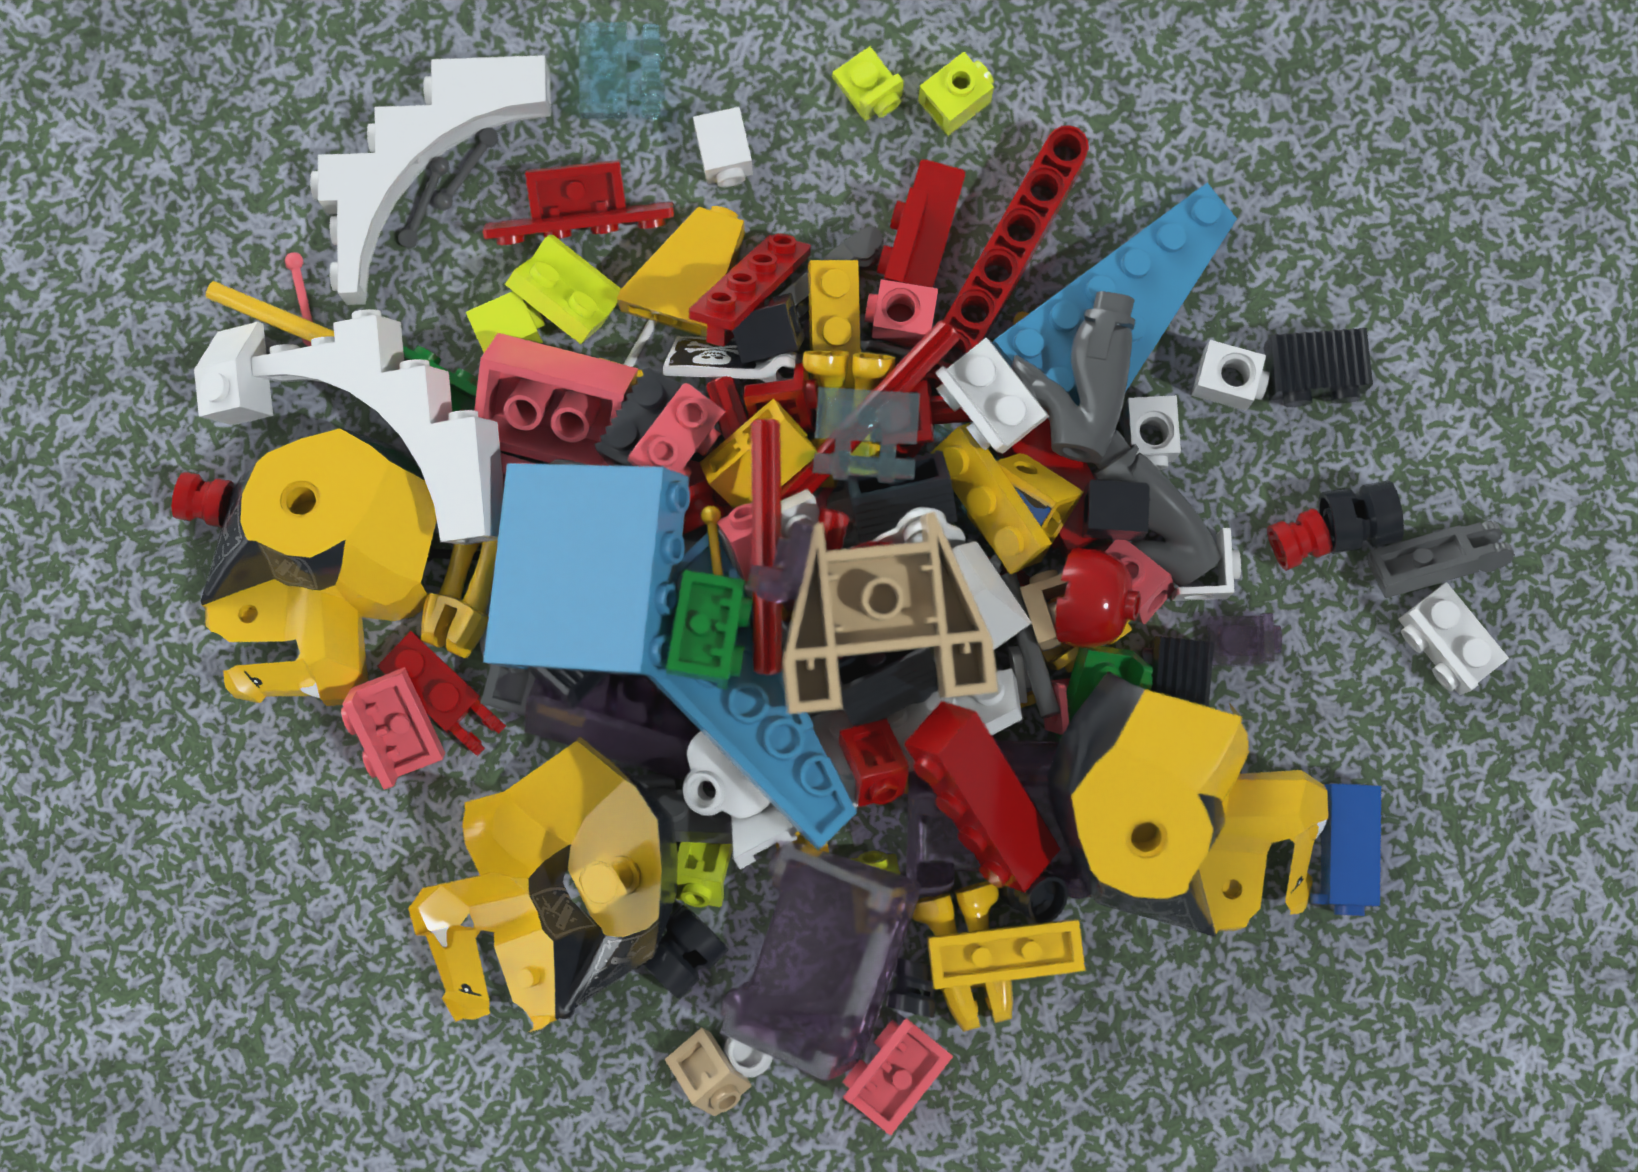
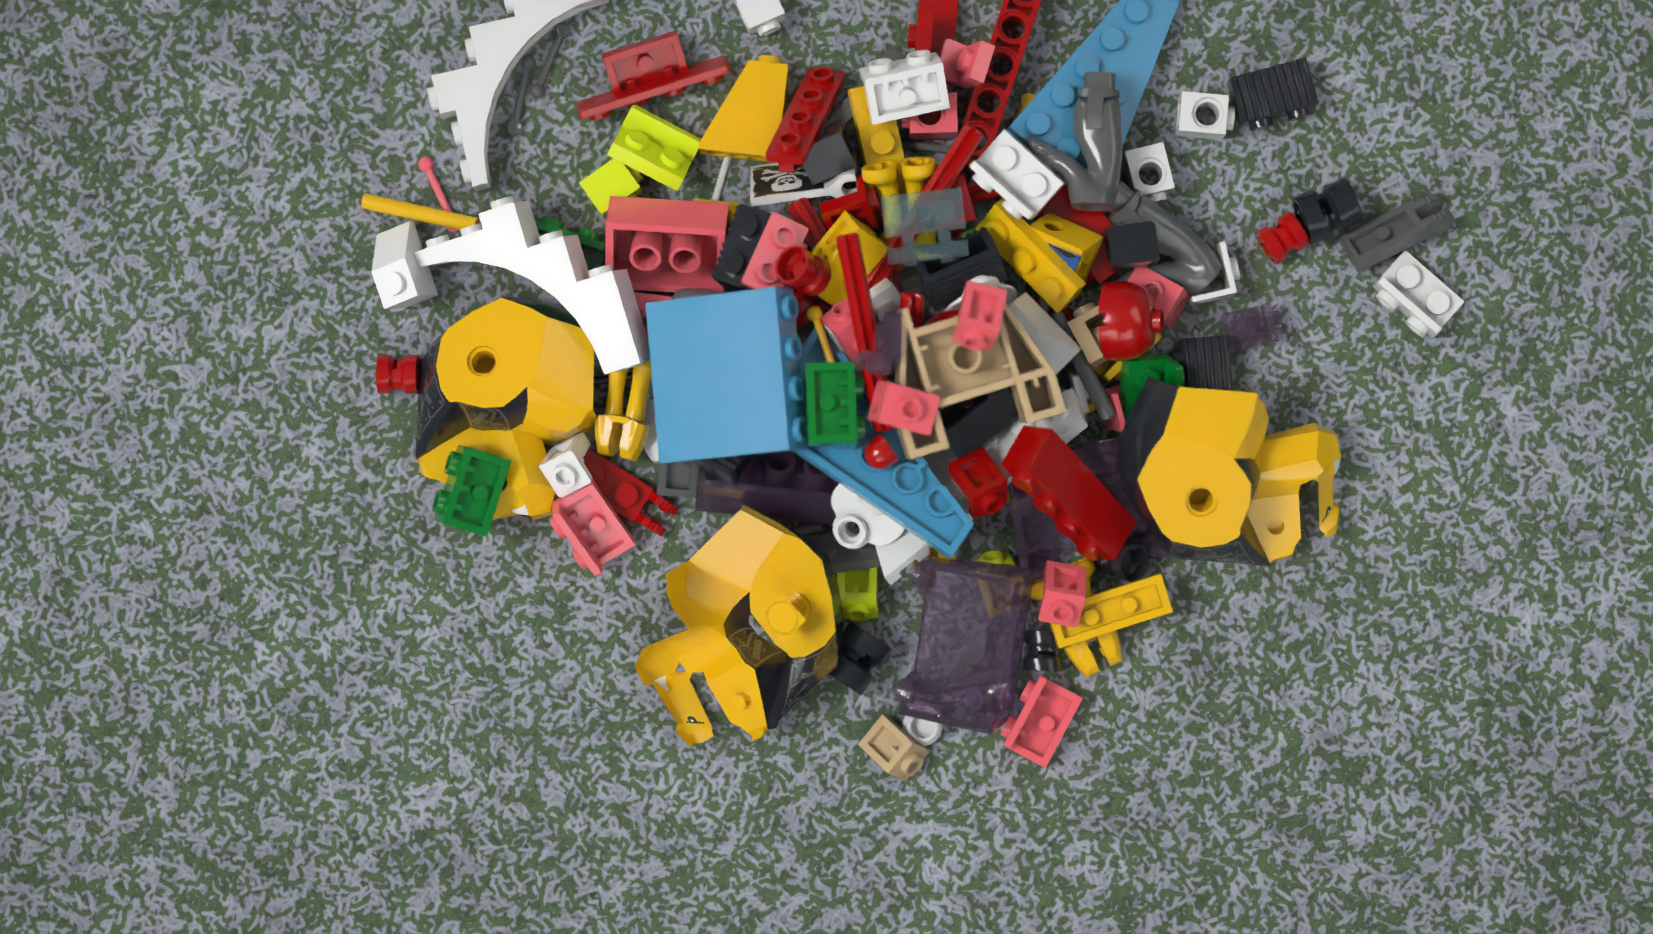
camera: 10 degrees left, 5 degrees up
(253, 653) = (470, 490): none -> green bracket
(376, 645) = (566, 467): none -> white bracket
(705, 458) = (803, 270): none -> red wheel
(754, 701) = (879, 453): none -> red hinge
(795, 647) = (903, 407): none -> coral bracket
(876, 267) = (904, 86): none -> white bracket
(910, 550) = (979, 316): none -> coral bracket
(952, 921) = (1063, 593): none -> coral bracket
(953, 260) = (965, 64): none -> coral bracket
(1351, 849) = (1364, 477): blue brick -> none

